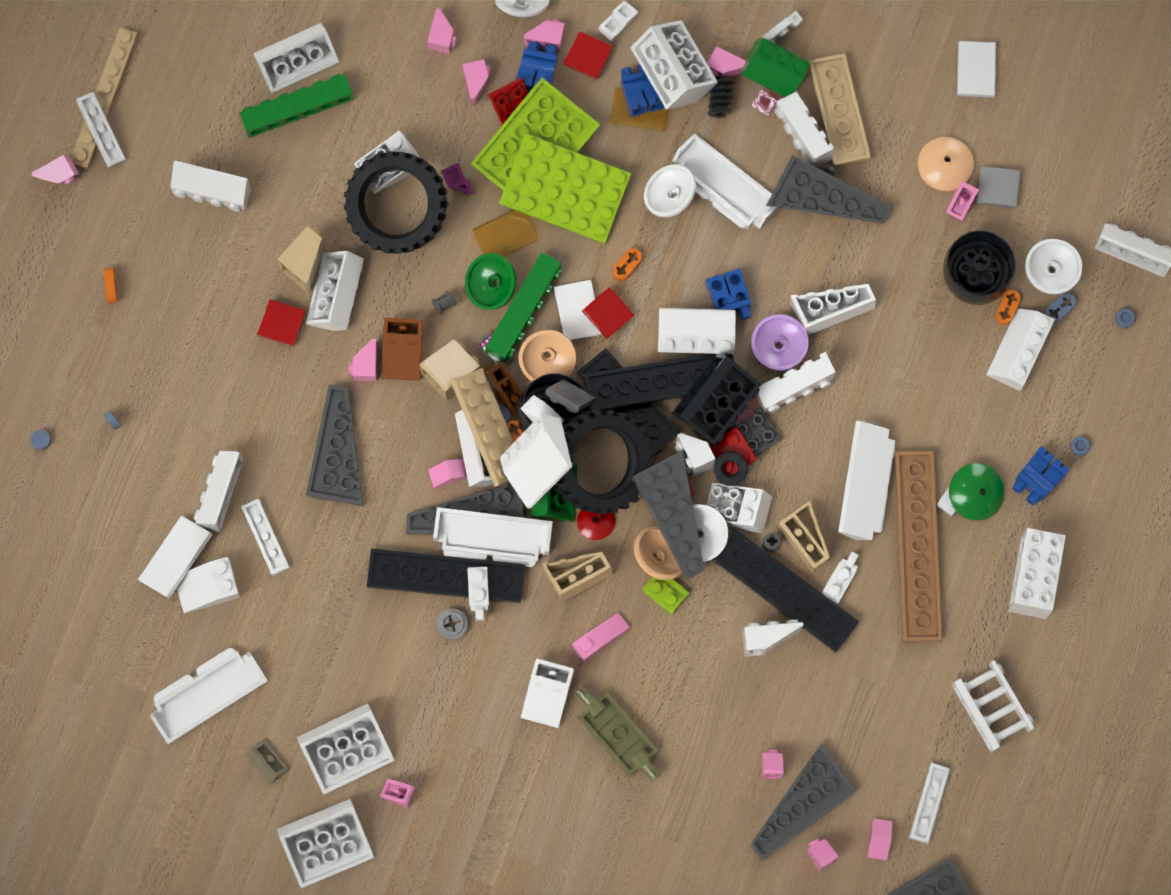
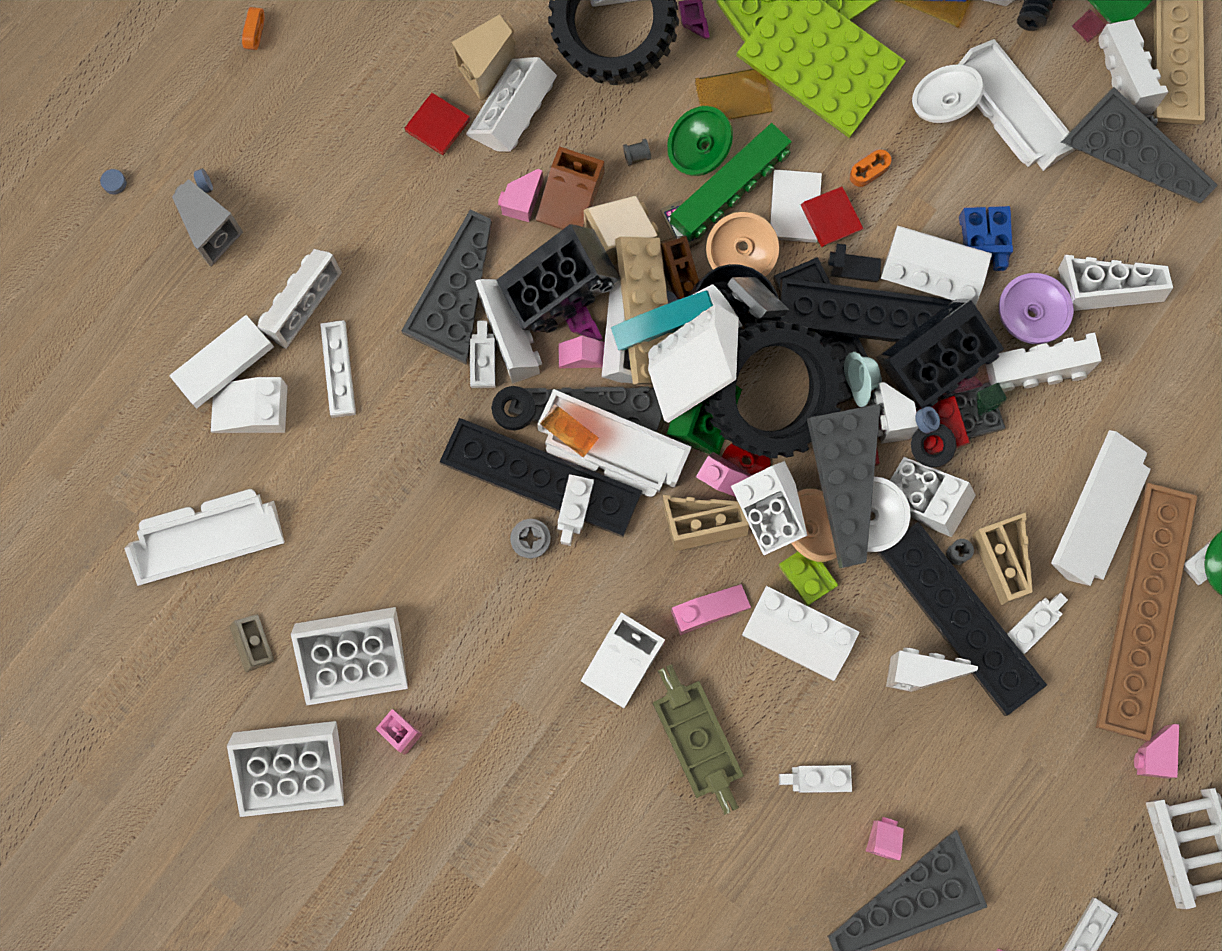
camera: 20 degrees right, 0 degrees up
(128, 451) = (207, 222): none -> light grey slope
(374, 497) = (482, 358): none -> white hinge
(387, 470) = (510, 337): none -> white slope
(410, 518) = (507, 394): none -> black tyre
(416, 423) = (558, 279): none -> black brick
(439, 447) = (584, 325): none -> magenta slope
(458, 535) = (569, 430): none -> clear orange brick
(503, 434) = (660, 320): none -> teal slope
(583, 535) = (721, 473): none -> bright pink slope
(624, 549) = (771, 507): none -> white slope
(635, 346) = (853, 266): none -> black bracket
(664, 432) = (862, 377): none -> light aqua piece
(671, 636) = (800, 633): none -> white slope
(713, 737) = (819, 779): none -> white hinge
(720, 452) = (927, 419): none -> sand blue tile
(763, 422) = (990, 398): none -> clear green slope
(951, 648) = (1159, 754): none -> bright pink slope

